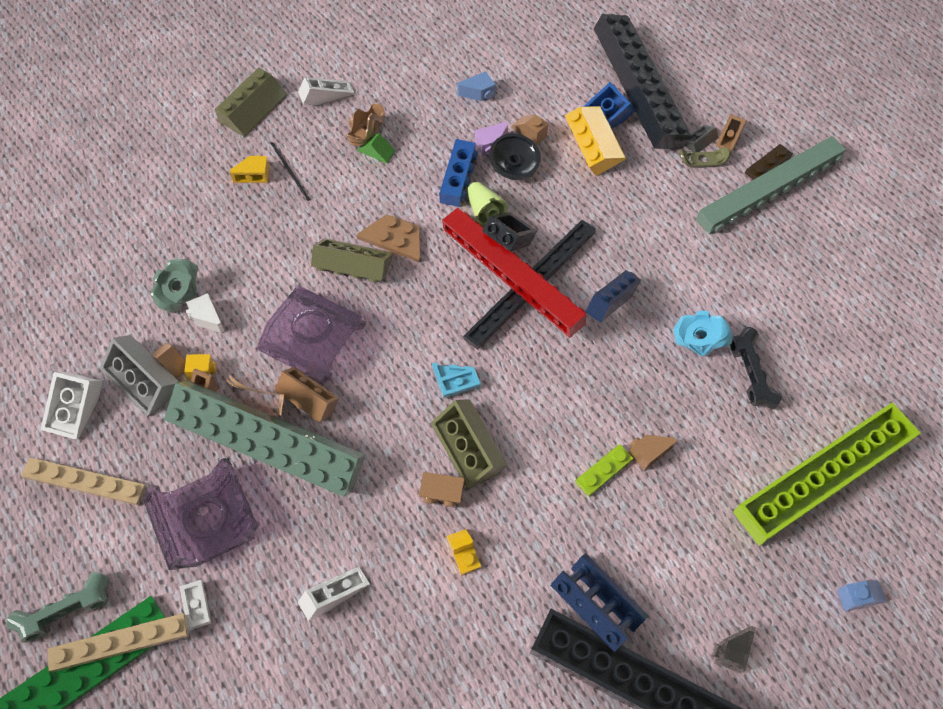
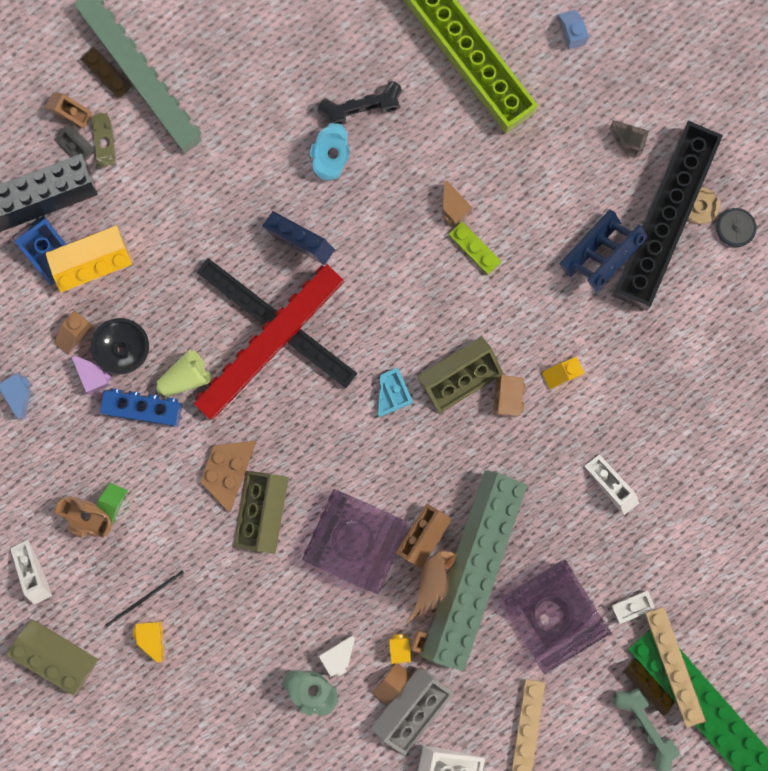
camera: 90 degrees left, 20 degrees up
(104, 612) = (648, 686): none -> dark brown plate
(505, 226) = (213, 339): black window -> none

